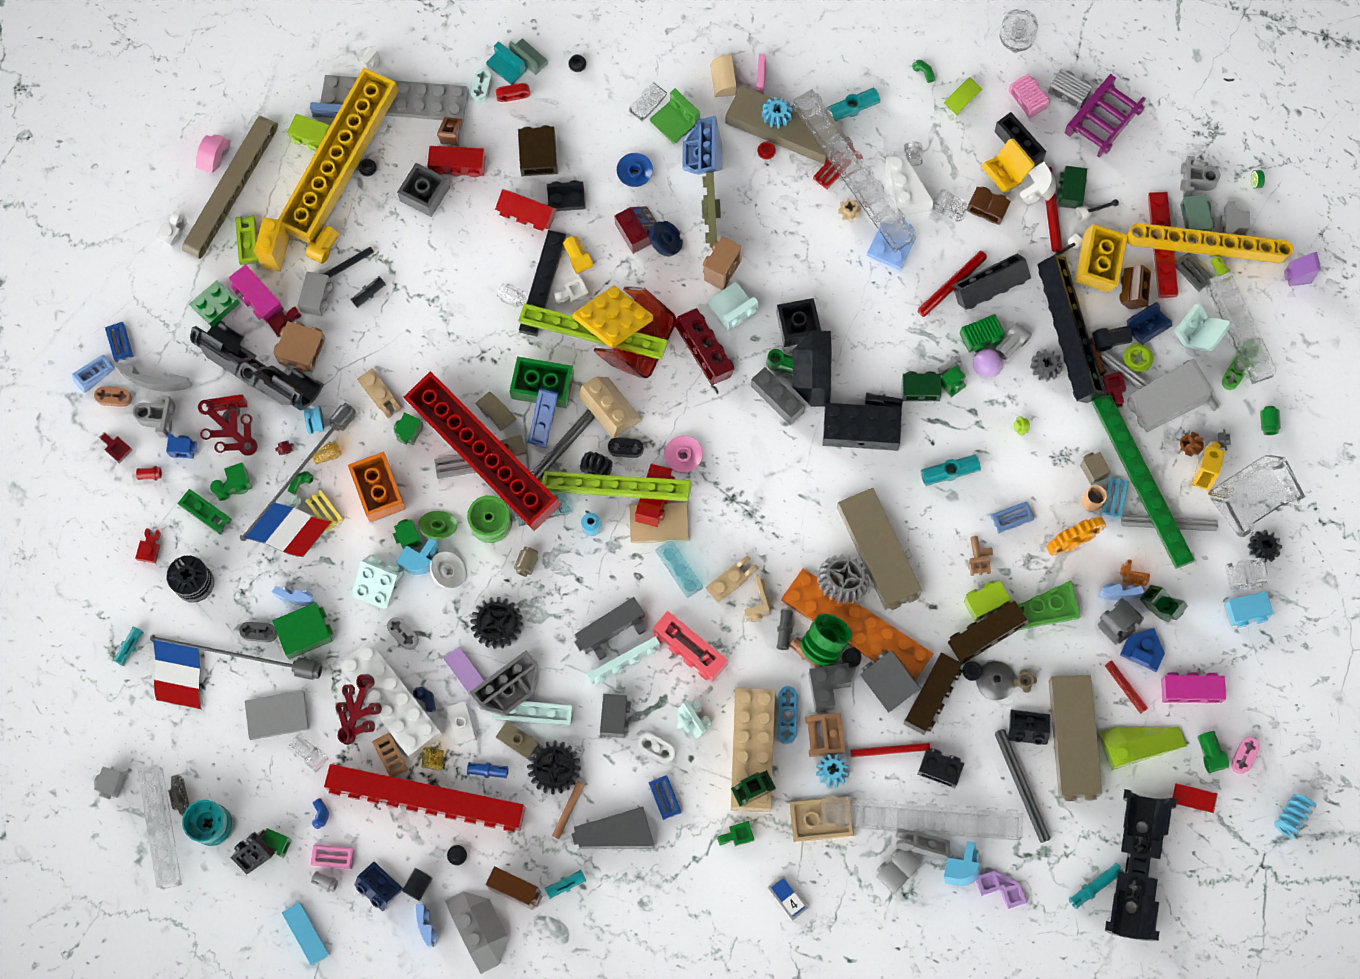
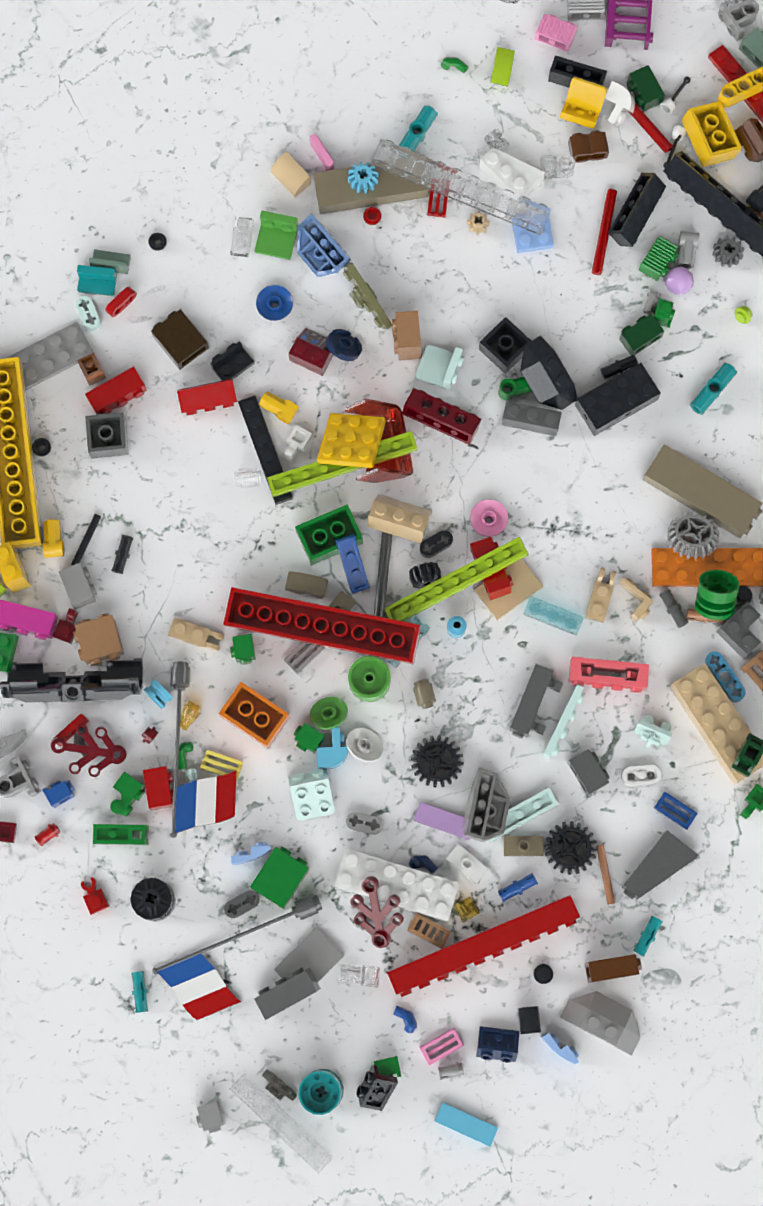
camera: 35 degrees left, 5 degrees up
(239, 725) = (286, 992): none -> dark grey brick
(260, 493) = (158, 787): none -> red brick

